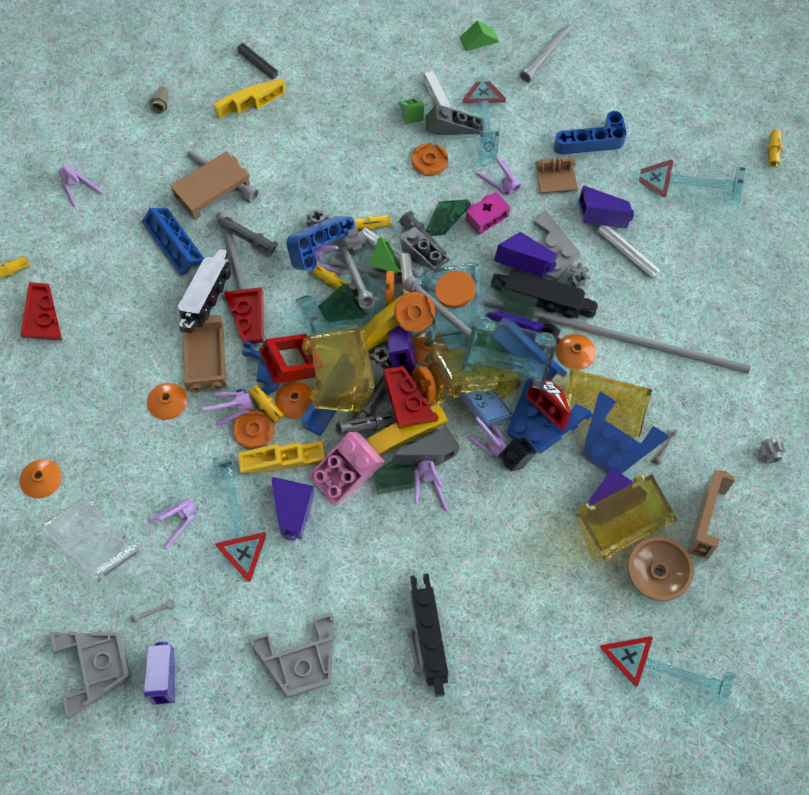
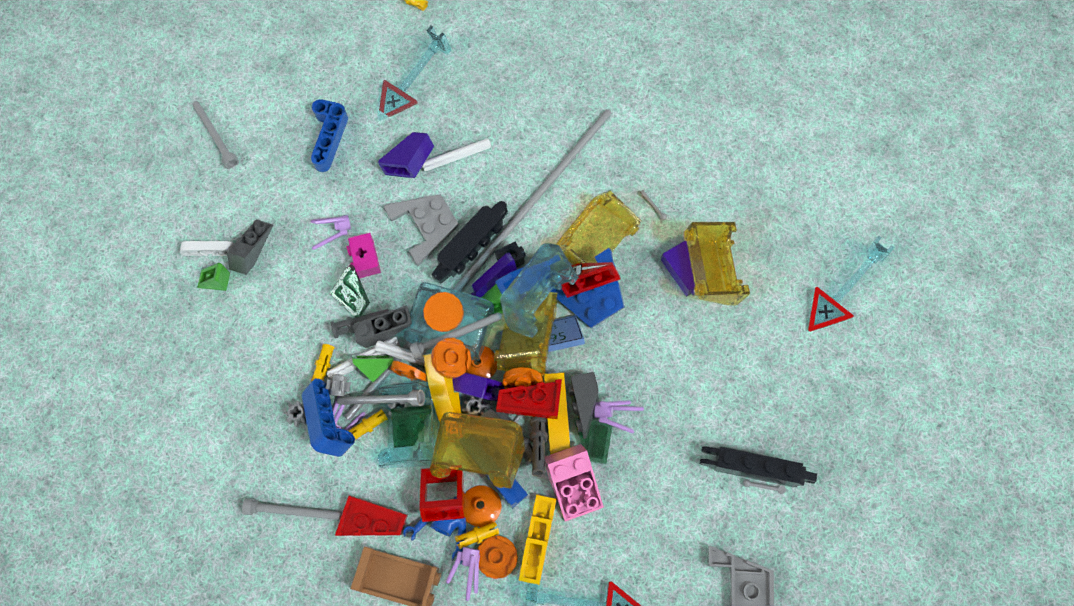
camera: 65 degrees left, 5 degrees up
(159, 100) = (68, 527): dark tan cone -> none
(170, 240) = (248, 572): blue fence -> none
(203, 291) = (331, 555): hinge -> none
(209, 183) = (202, 507): medium nougat panel -> none
(249, 192) = (231, 470): light grey piece -> none
(252, 96) = (118, 422): yellow slope -> none
(256, 240) = (291, 482): dark grey pin -> none
(257, 60) = (73, 407): dark grey axle -> none
(292, 506) = (593, 547): dark purple slope -> none
(430, 164) = (278, 284): orange tile -> none
(478, 36) = (162, 186): bright green slope -> none
(485, 92) = (231, 206): clear light blue piece -> none
(496, 444) = (600, 341): lavender plant -> none
(519, 303) = (474, 265): clear green wing -> none
(524, 452) = (618, 319): black brick -> none
(526, 255) = (429, 238): dark purple slope -> none
(556, 175) = (351, 181): medium nougat hinge -> none
(572, 358) = (530, 244): orange dish -> none
(580, 279) = (464, 205): light grey gear -> none
(611, 446) = (640, 246): blue wing -> none
(661, 555) = (768, 245): medium nougat dish -> none
(701, 543) = (729, 199): medium nougat panel -> none
(771, 450) = (689, 127): light grey gear -> none

